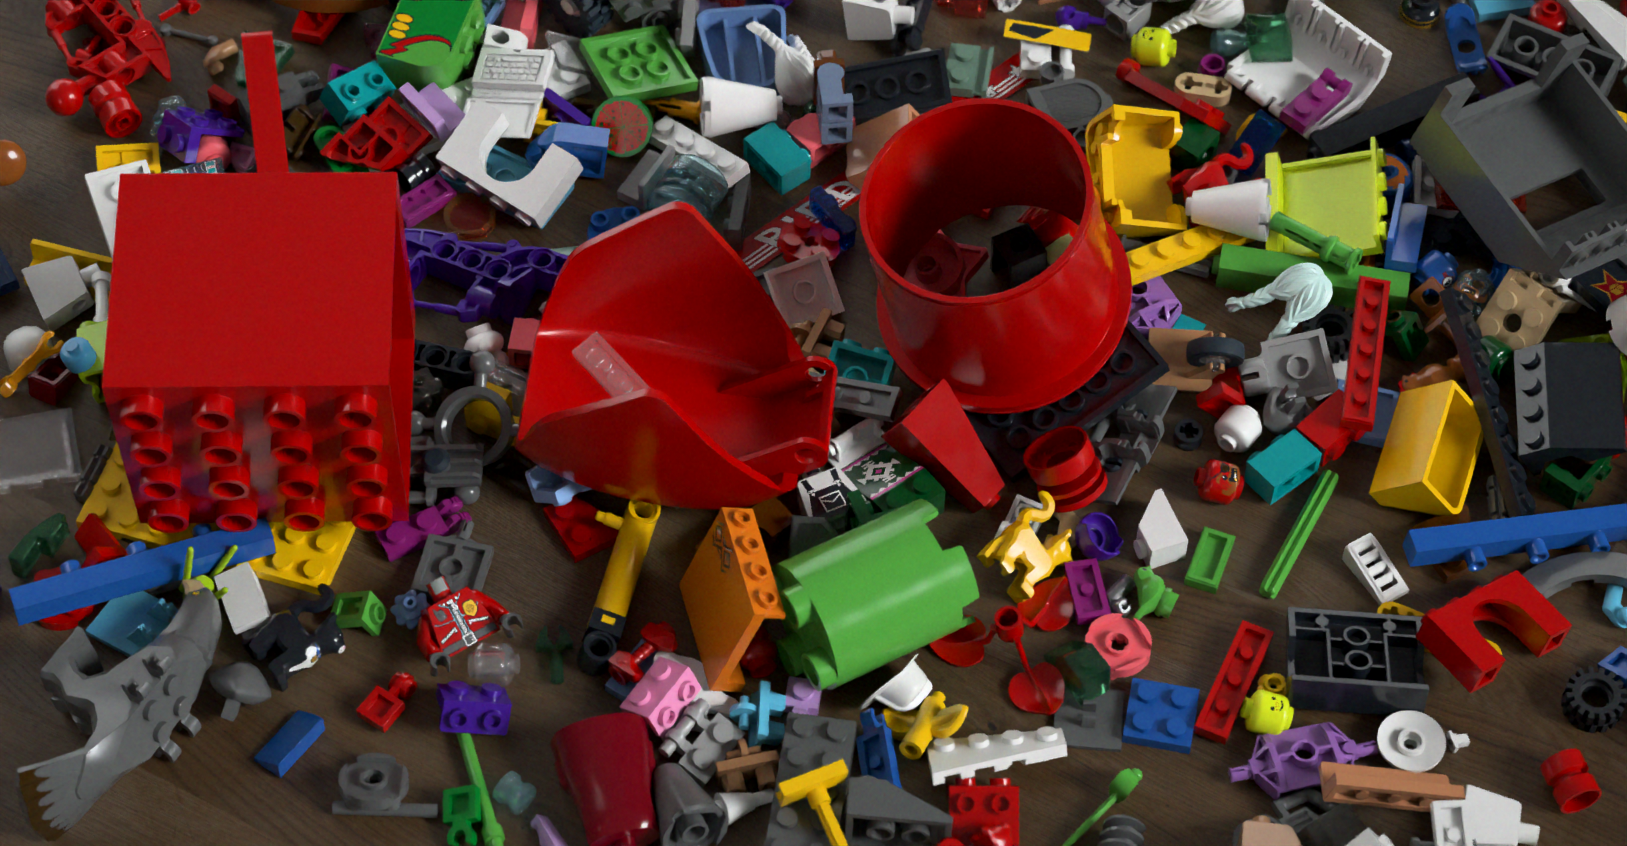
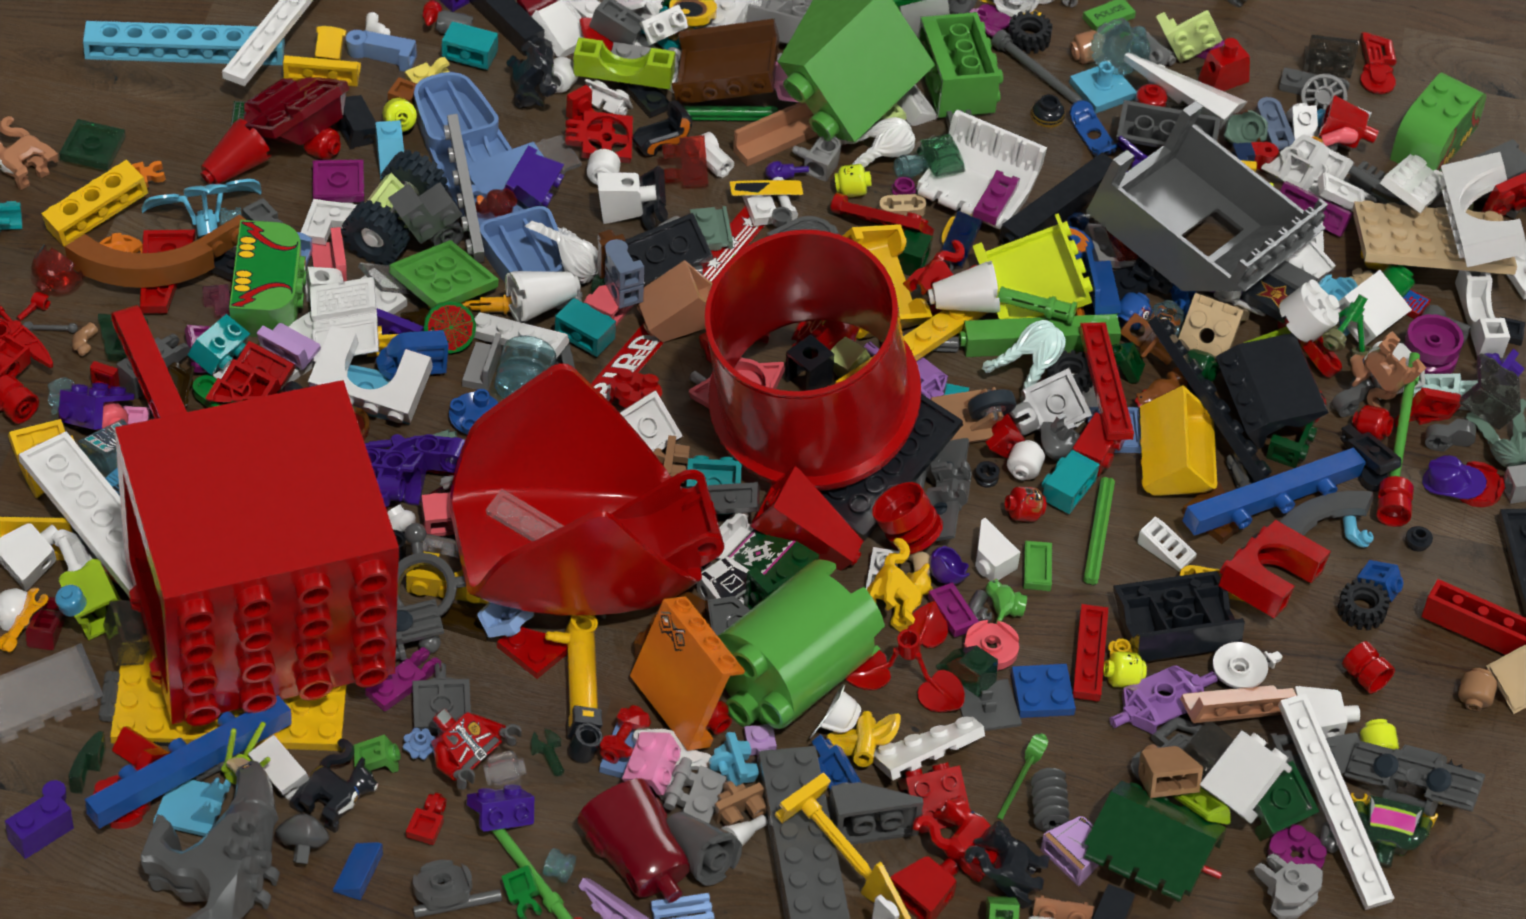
camera: 20 degrees left, 5 degrees down
(827, 211) = (643, 362): clear blue plate -> none

